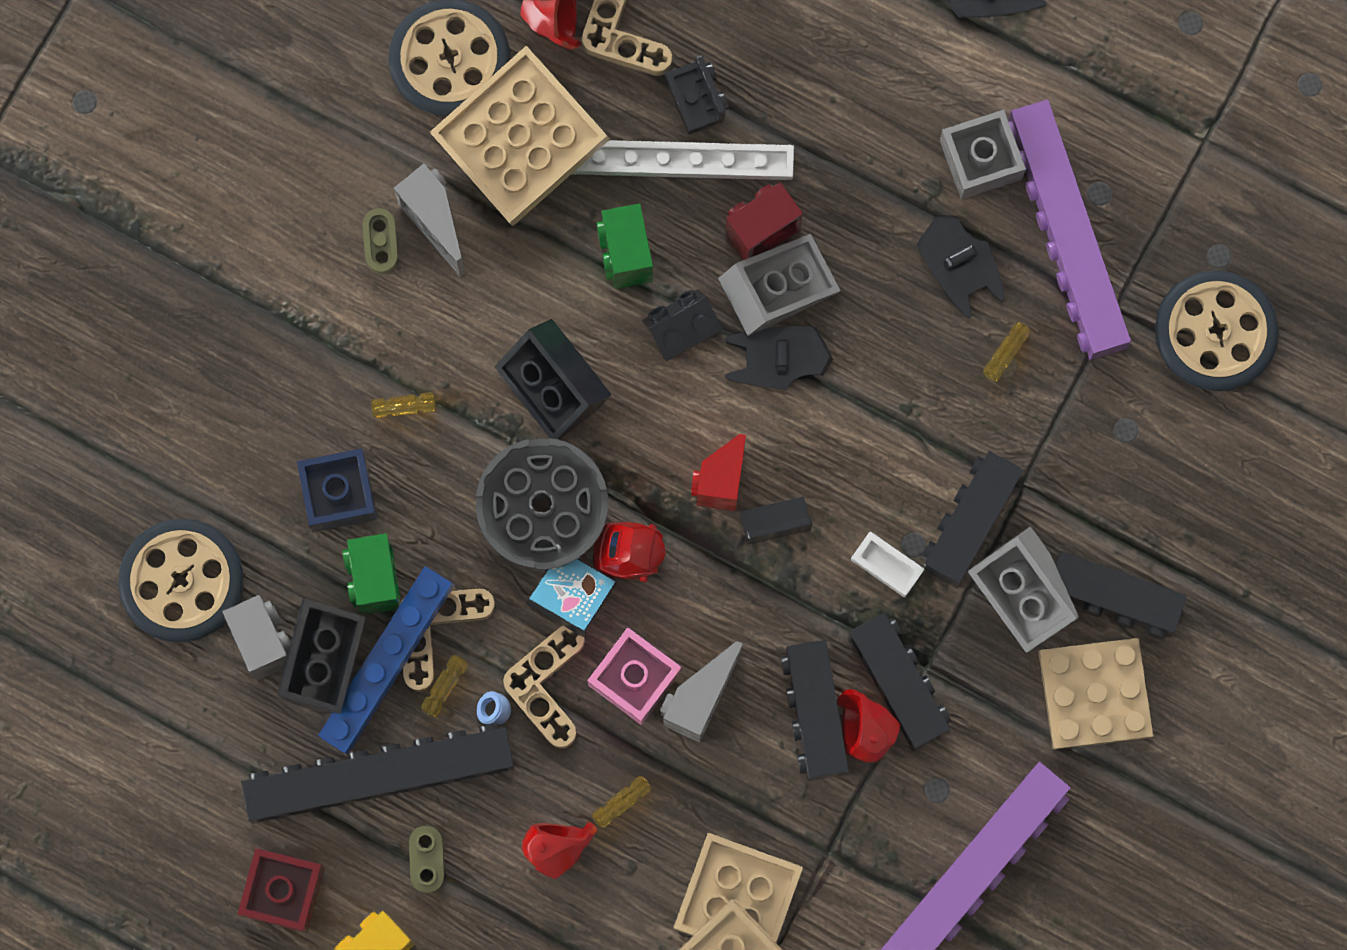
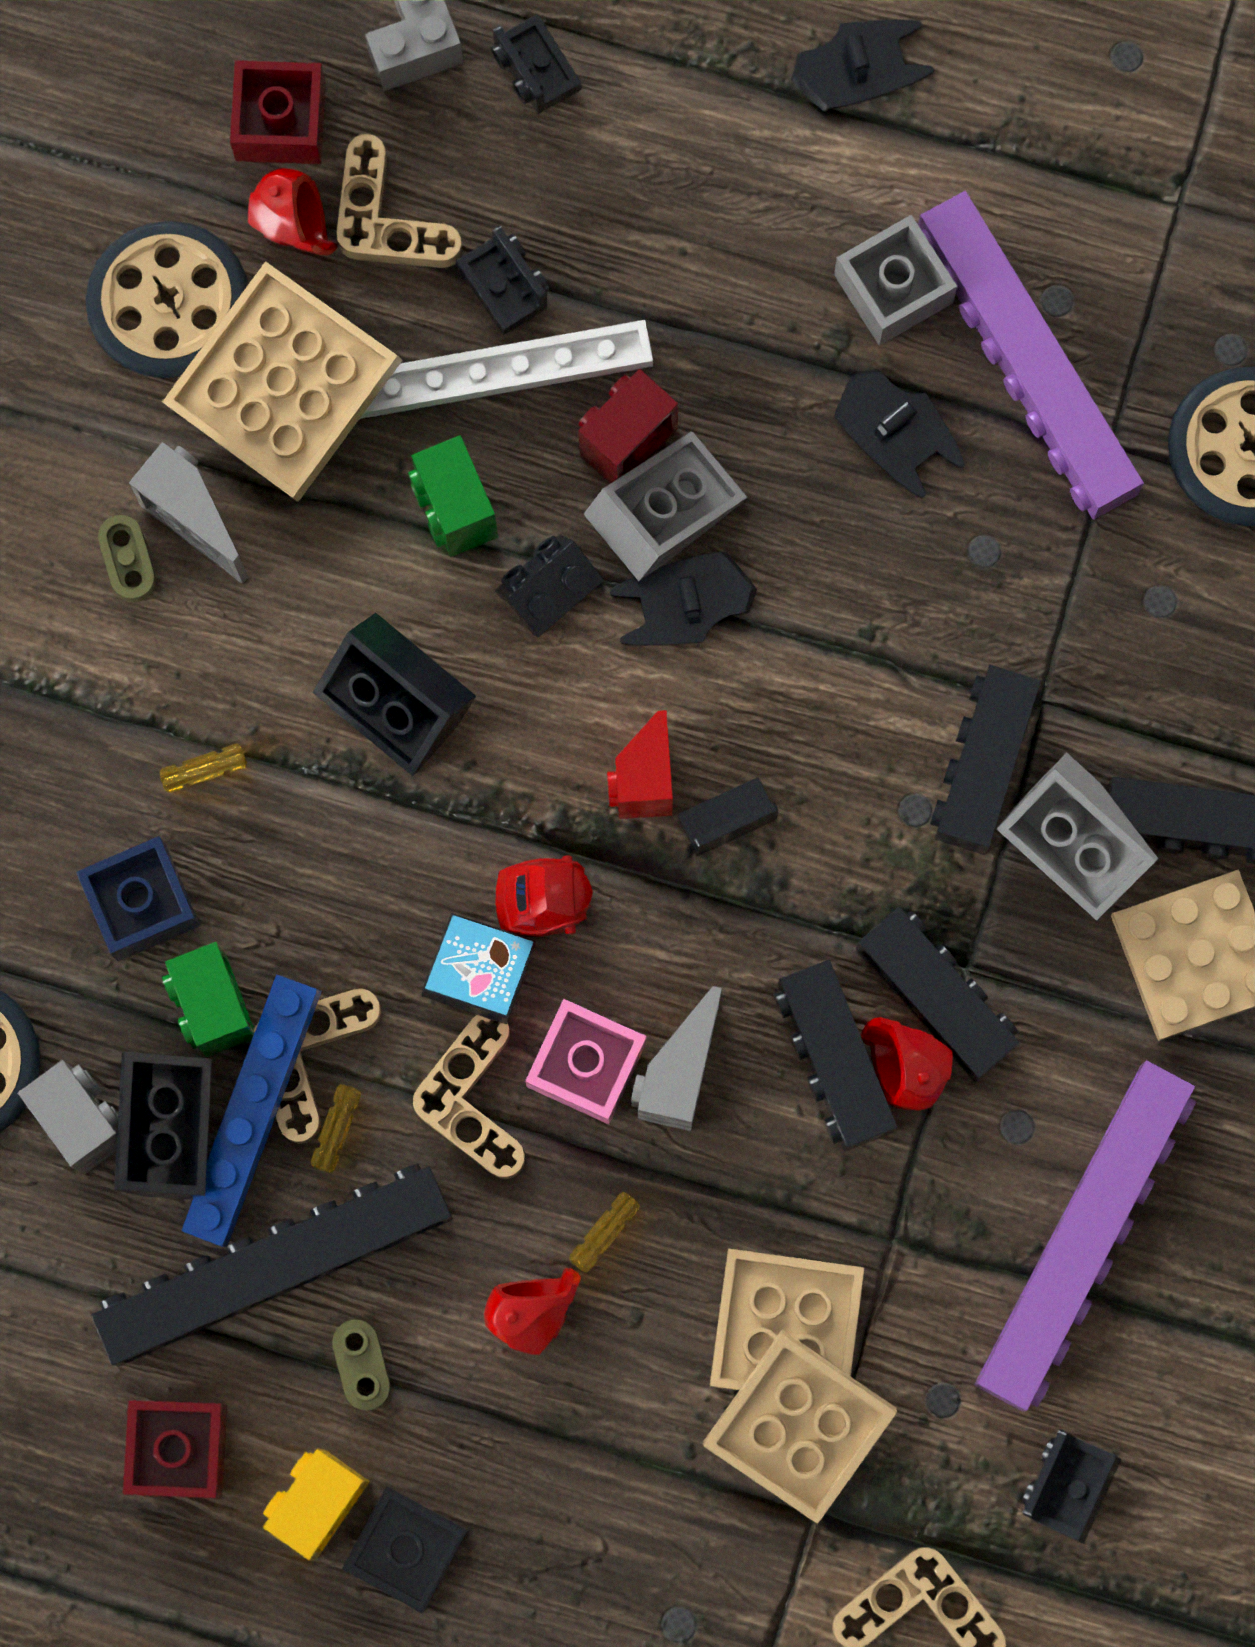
camera: 10 degrees left, 0 degrees up
(502, 710) = (419, 1144): light blue piece -> none
(533, 472) = (403, 816): dark grey brick -> none
(887, 564) = (887, 843): white tile -> none
(1006, 351) = (982, 530): clear yellow axle -> none

